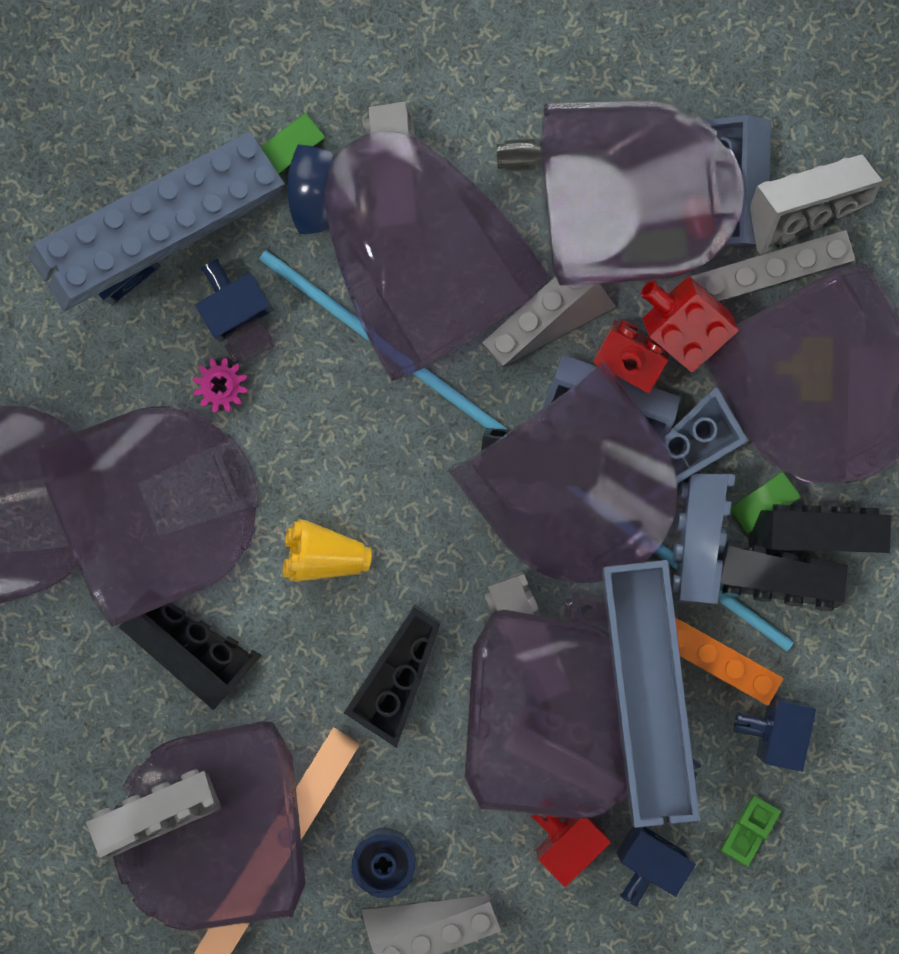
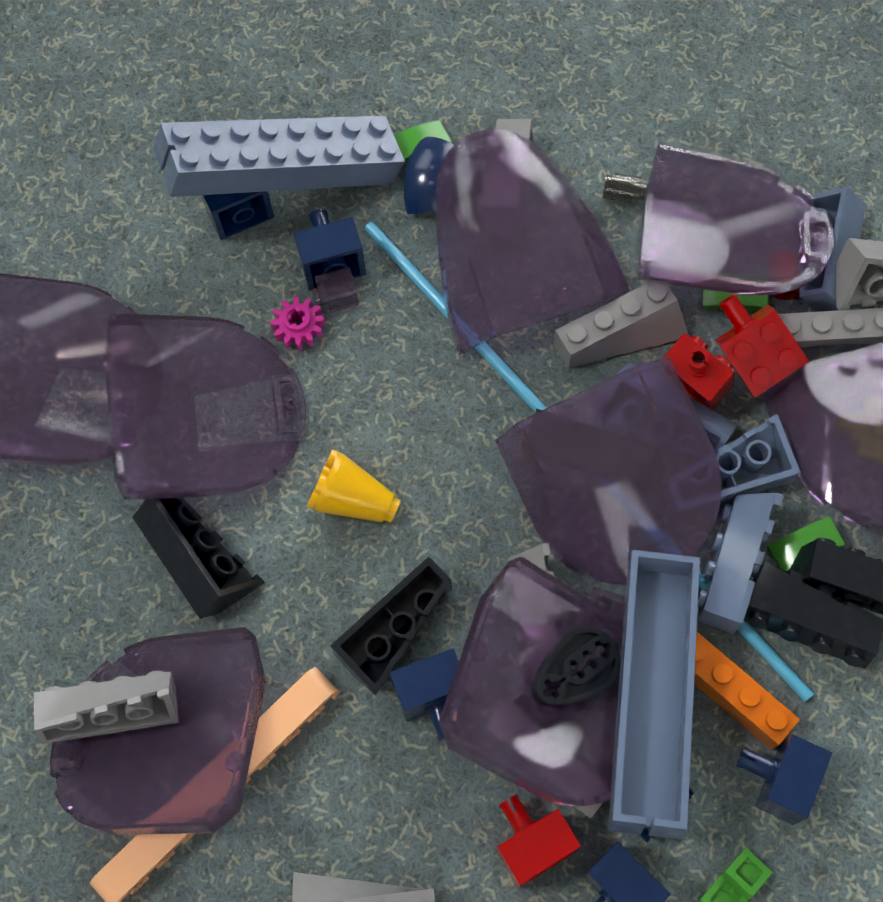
camera: 20 degrees right, 20 degrees down
(372, 876) = (318, 804): dark blue brick -> none
(442, 728) = (425, 686): none -> dark blue brick
(590, 692) = (590, 679): none -> black piece

